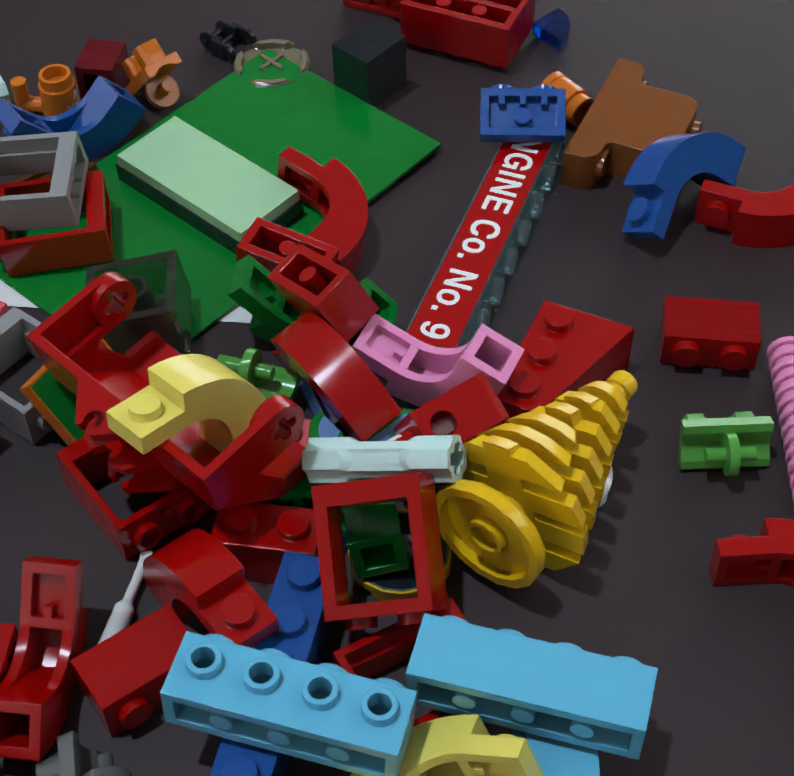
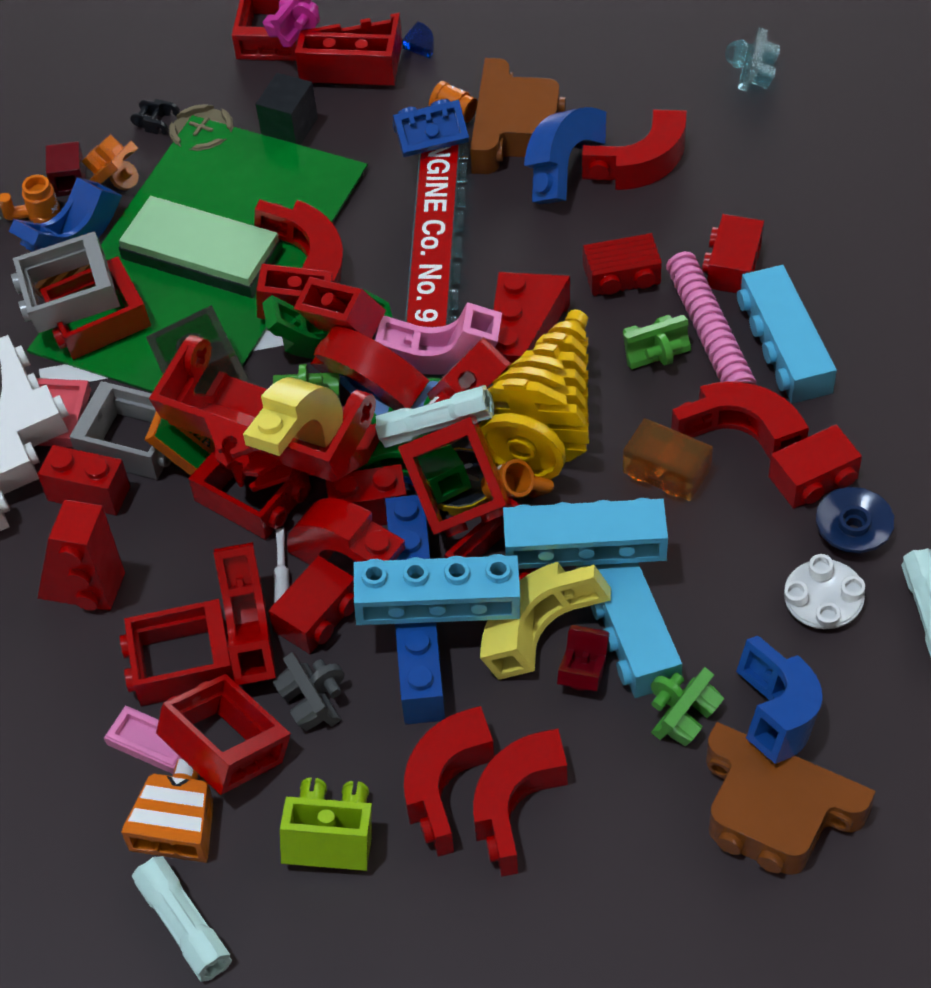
camera: 15 degrees left, 5 degrees up
(472, 578) = (519, 481): none -> orange piece
(690, 607) = (667, 459): none -> clear orange brick

